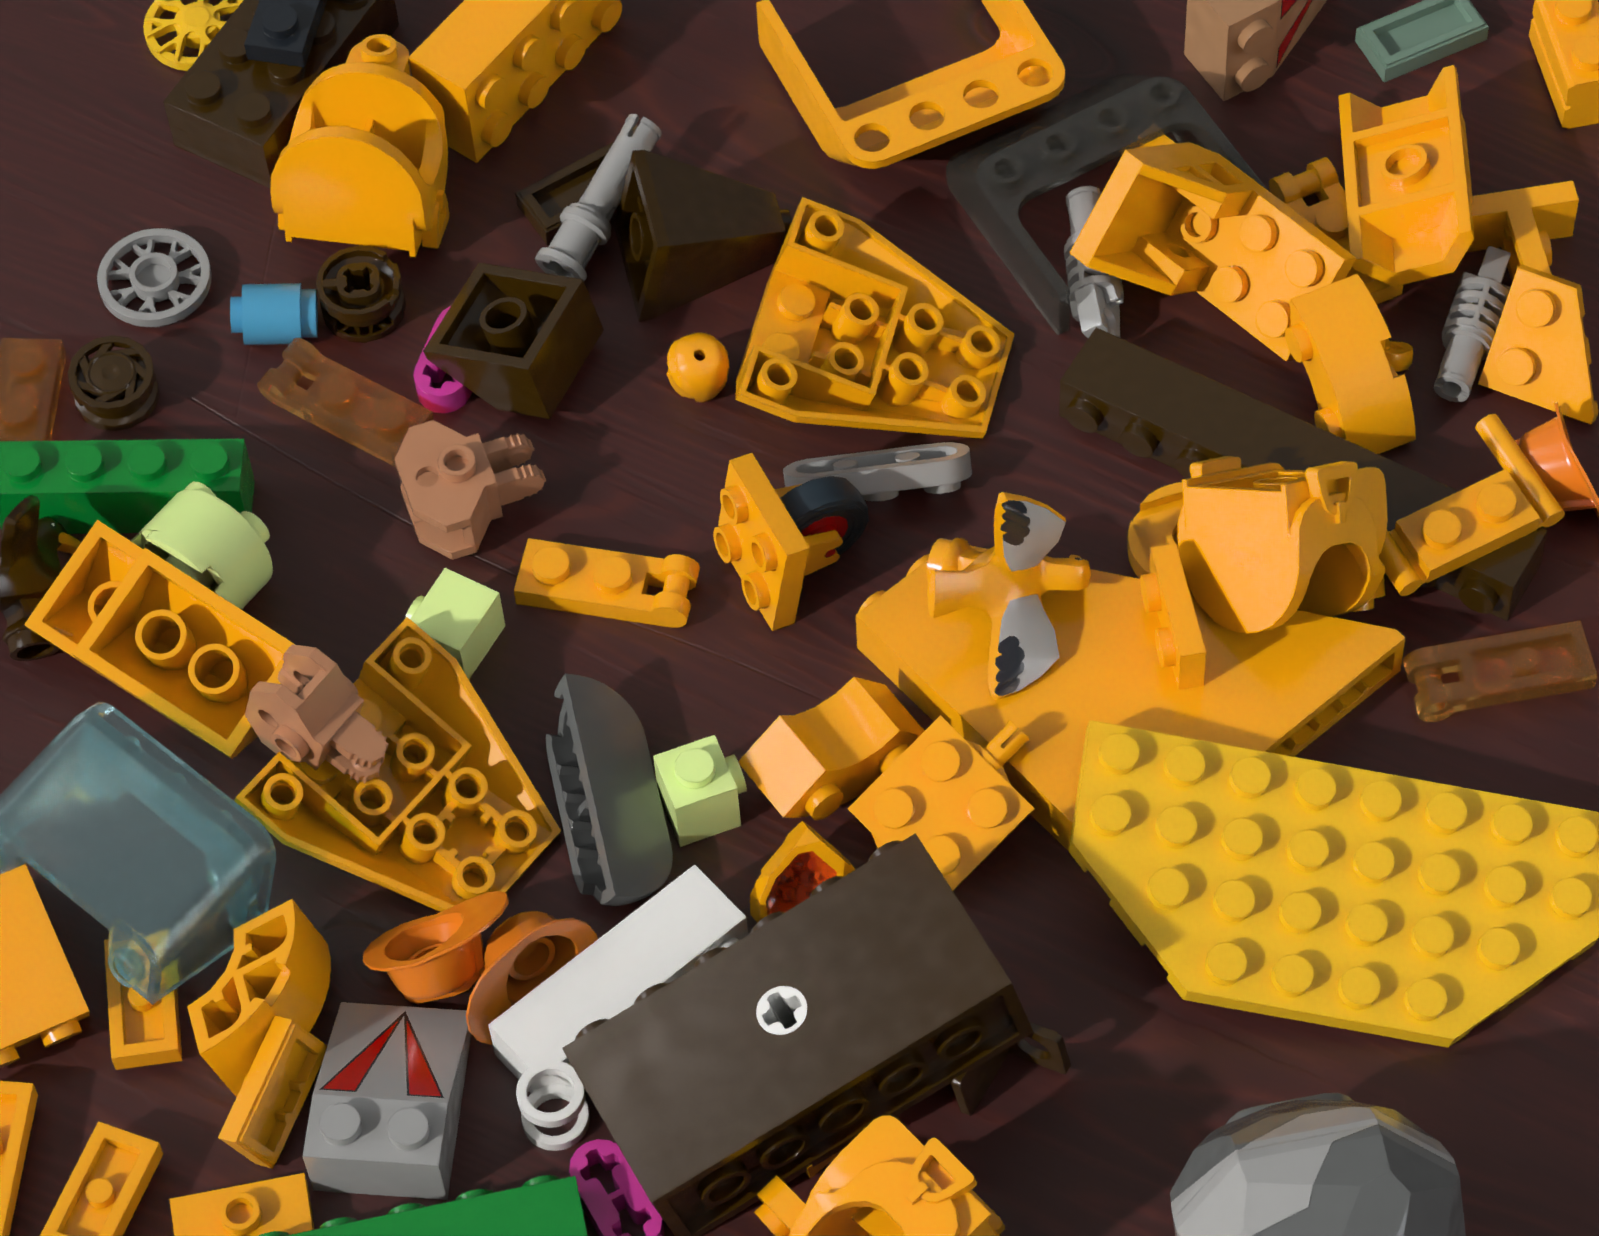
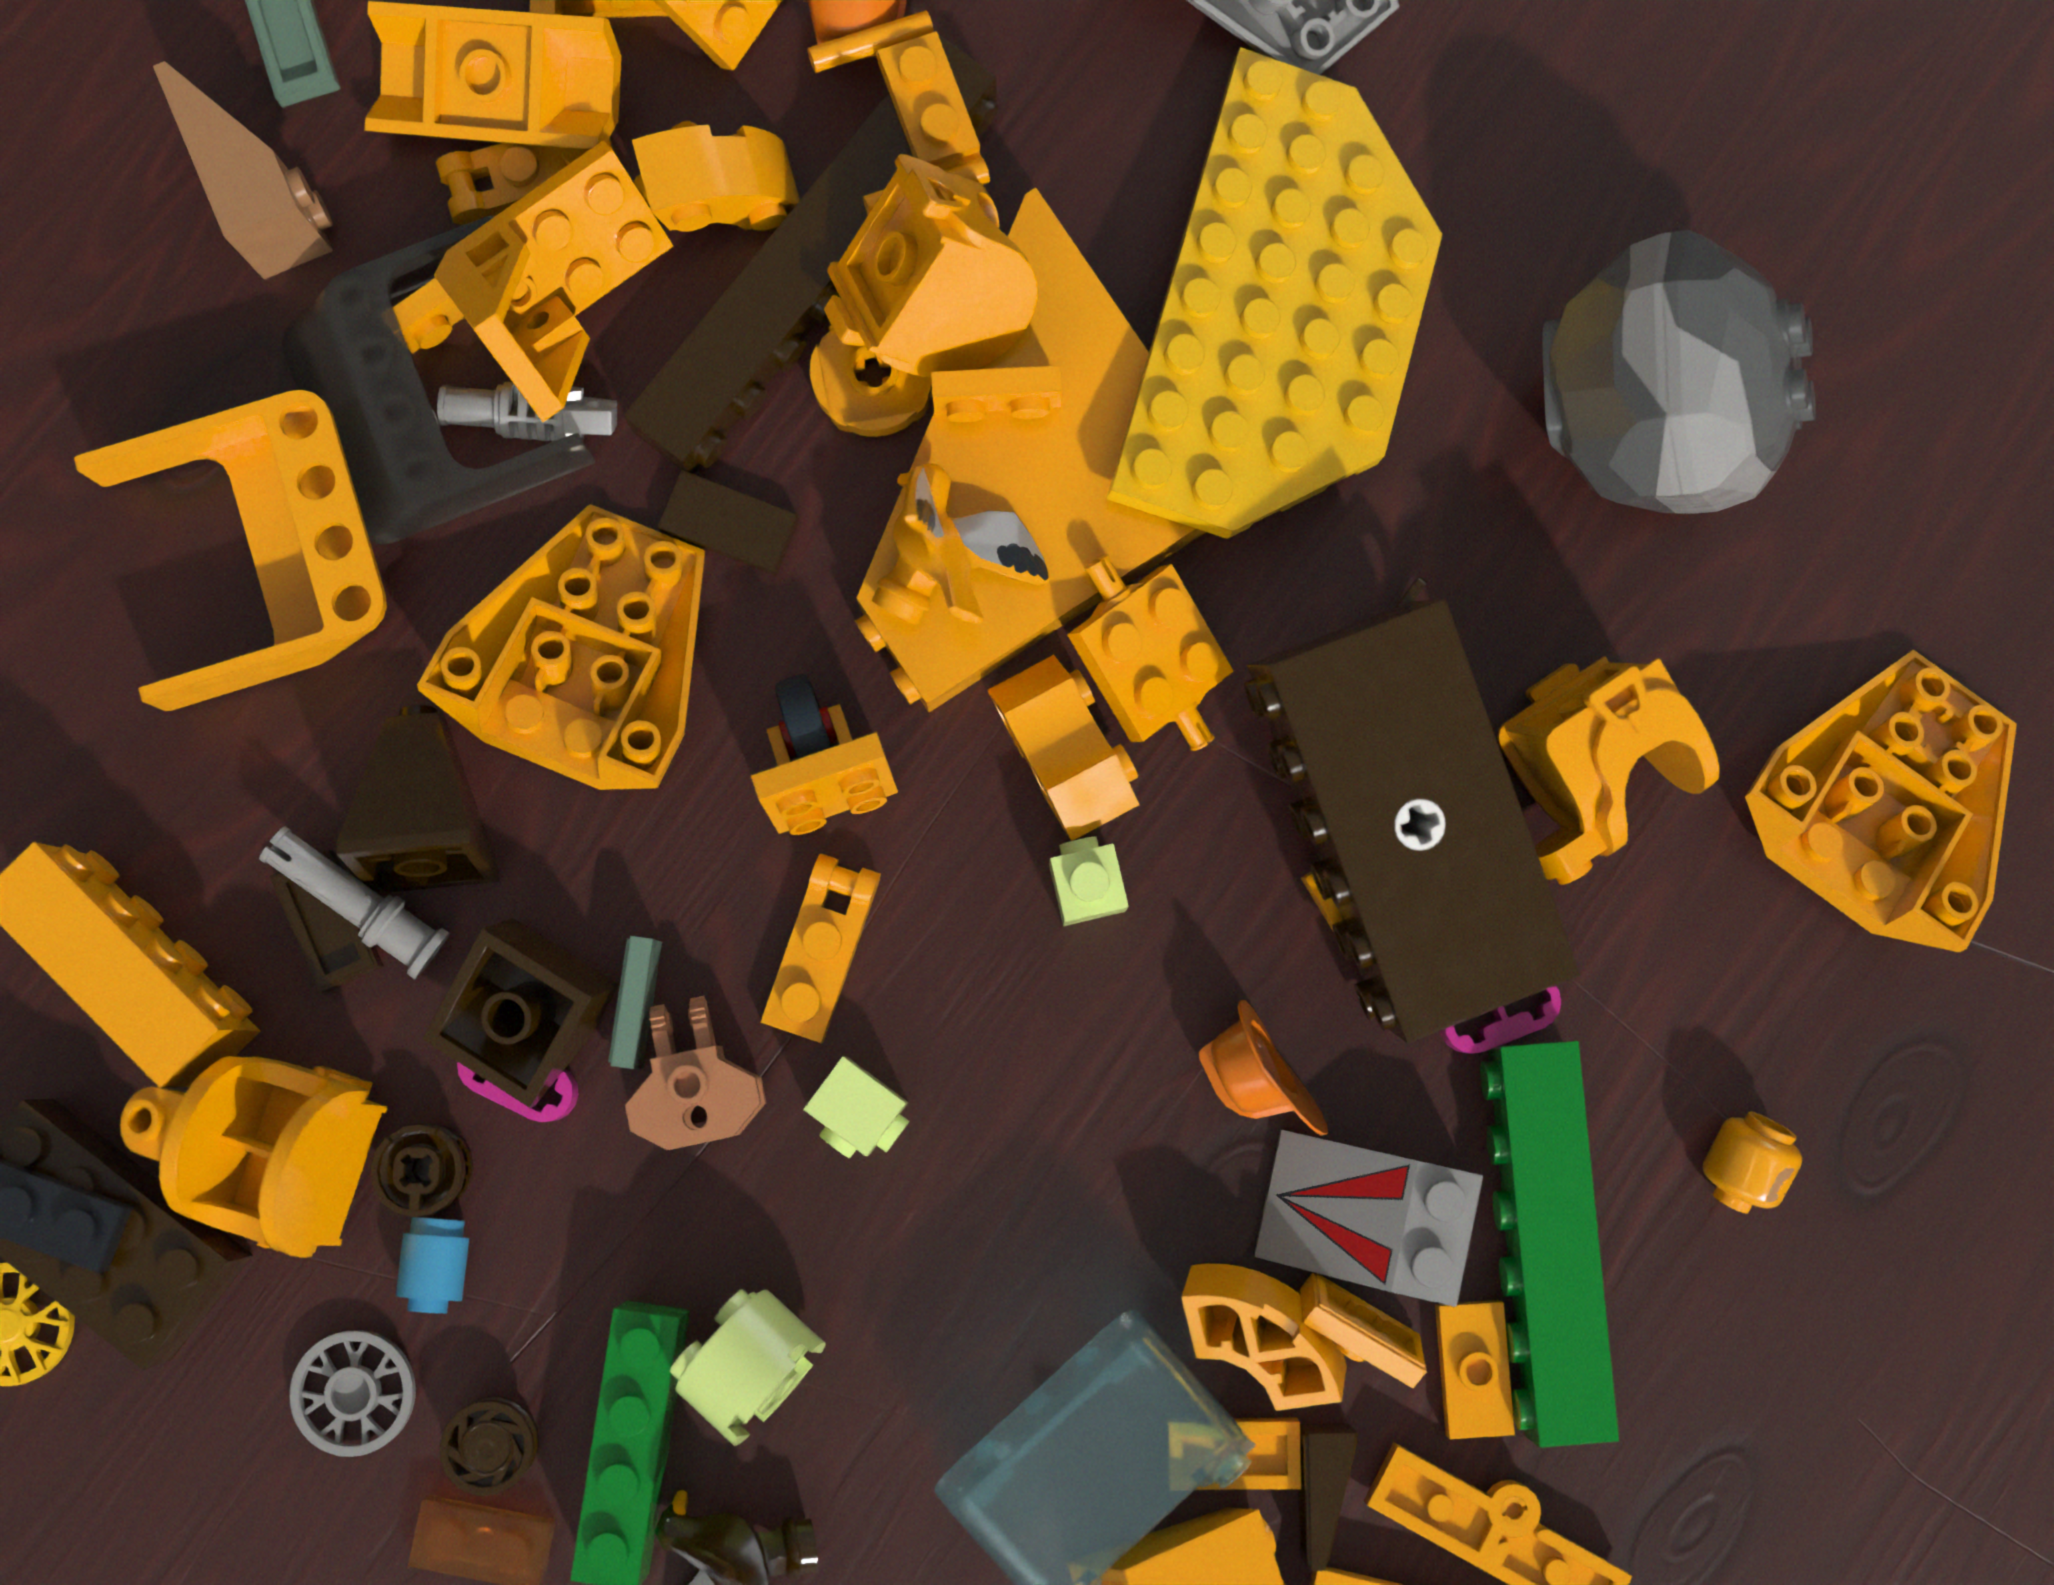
camera: 90 degrees left, 25 degrees up
(112, 1079) = (1325, 1470): none -> dark brown slope
(160, 637) = (849, 1411): light orange slope -> none
(316, 716) = (989, 1251): nougat hinge -> none
(342, 401) = (556, 1195): clear orange plate -> none
(437, 952) = (1227, 1156): orange piece -> none
(449, 799) = (1037, 1177): light orange wedge -> none
(553, 430) = (634, 1002): none -> sand green tile
(603, 980) = (1294, 992): white hinge -> none
(607, 795) = (1080, 973): dark grey brick -> none
(698, 366) = (580, 840): light orange piece -> none
(796, 871) = (1198, 797): rock -> none
(885, 472) = (743, 661): light grey plate -> none
(1016, 444) = (728, 522): none -> dark brown tile
(1472, 325) = (672, 60): light grey hinge -> none
(1500, 669) = (1062, 111): clear orange plate -> none

